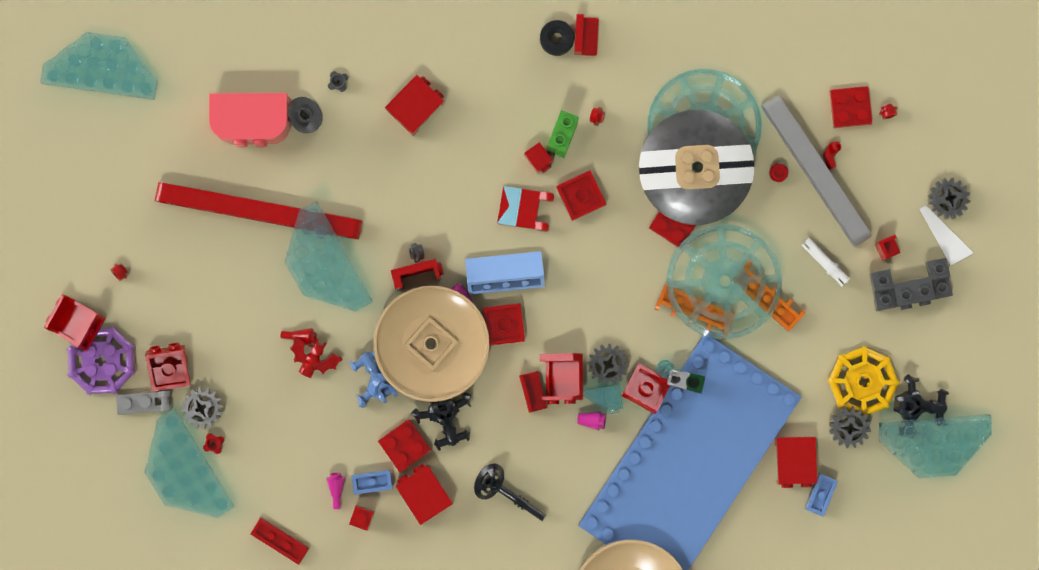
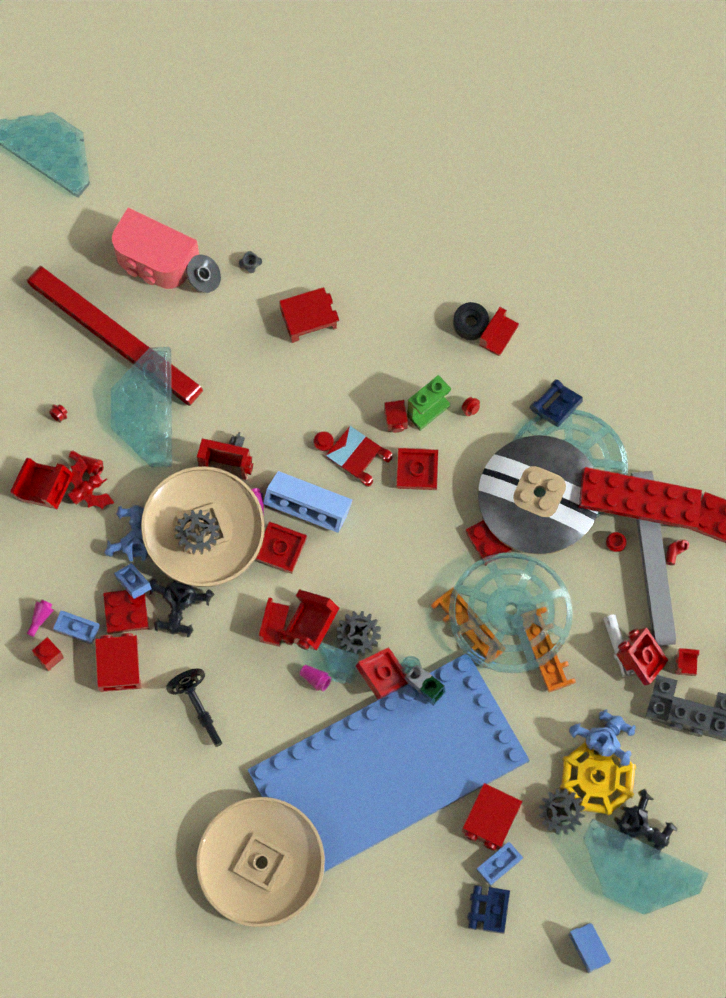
camera: 30 degrees right, 15 degrees down
(250, 304) = (58, 413): none -> red plate
(273, 376) = (41, 484): none -> red panel
(397, 419) = (132, 581): none -> medium blue plate
(437, 360) = (205, 530): none -> dark grey gear
(489, 212) = (323, 441): none -> red plate
(674, 76) = (561, 407): none -> dark blue plate
(782, 127) = (640, 498): none -> red plate
(837, 535) = (495, 912): none -> dark blue plate
(850, 263) = (642, 655): none -> red plate
(855, 351) = (605, 739): none -> medium blue piece
(926, 524) = (589, 947): none -> medium blue panel

